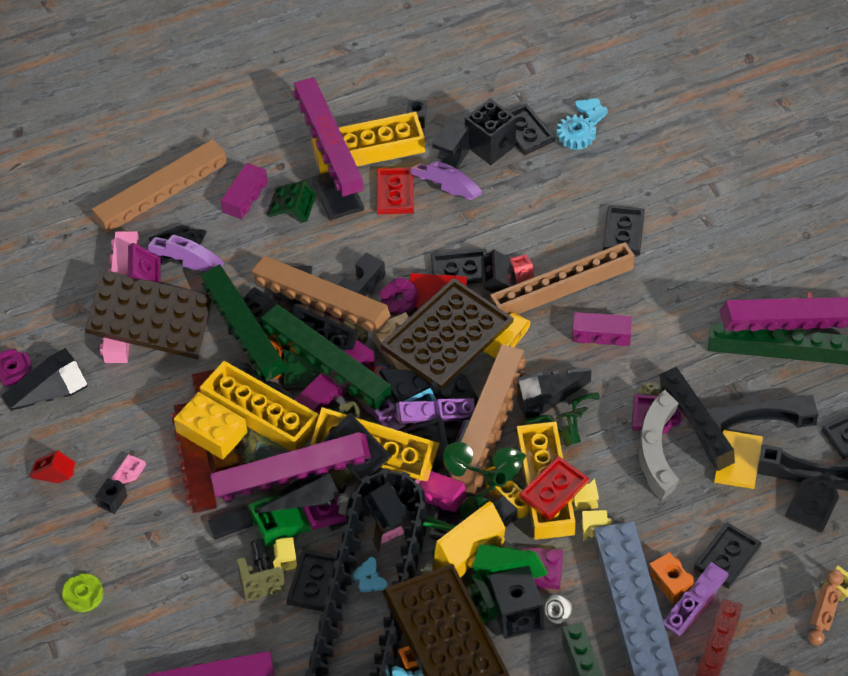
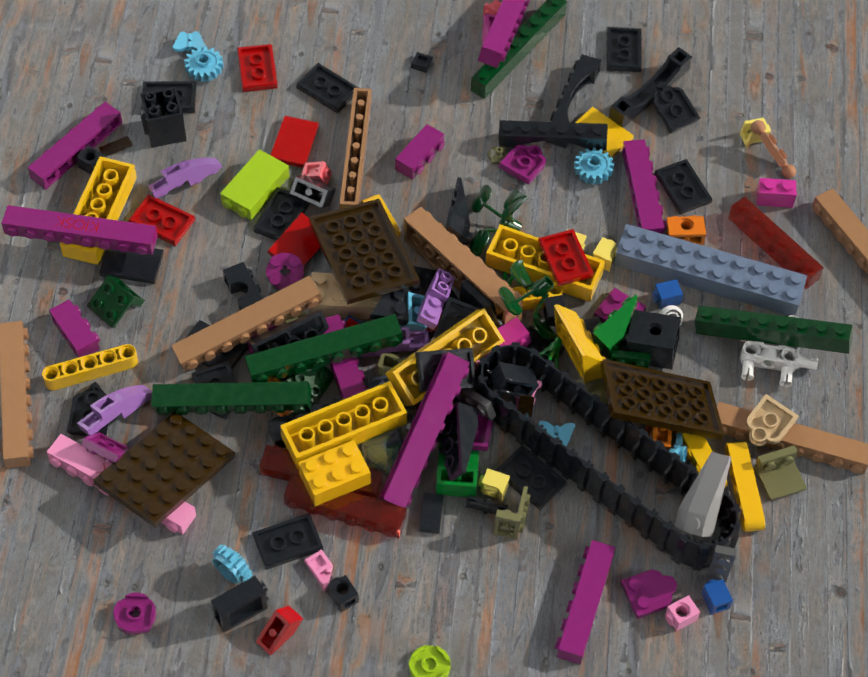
camera: 65 degrees left, 5 degrees up
(50, 379) = (176, 584): black wedge -> none
(54, 426) = (240, 603): none -> black window
(85, 402) = (231, 564): none -> medium azure gear
(140, 435) = (287, 541): none -> black tile
(216, 219) = (83, 373): none -> yellow beam
(437, 95) = (64, 153): none -> magenta brick
(452, 143) = (153, 151): black piece -> none
(474, 231) = (254, 185): none -> lime brick
(545, 236) = (294, 141): none -> red tile
(585, 596) = (667, 294): none -> blue brick
(605, 171) = (257, 67): none -> red tile
(650, 450) = (560, 176): light grey brick -> none
(692, 469) = (593, 166): none -> medium azure gear
(695, 520) = (642, 186): none -> magenta brick
(696, 600) = (716, 228): medium lavender slope -> none
(709, 283) = (421, 62): none -> black tile
(776, 635) = (776, 192): none -> dark pink brick

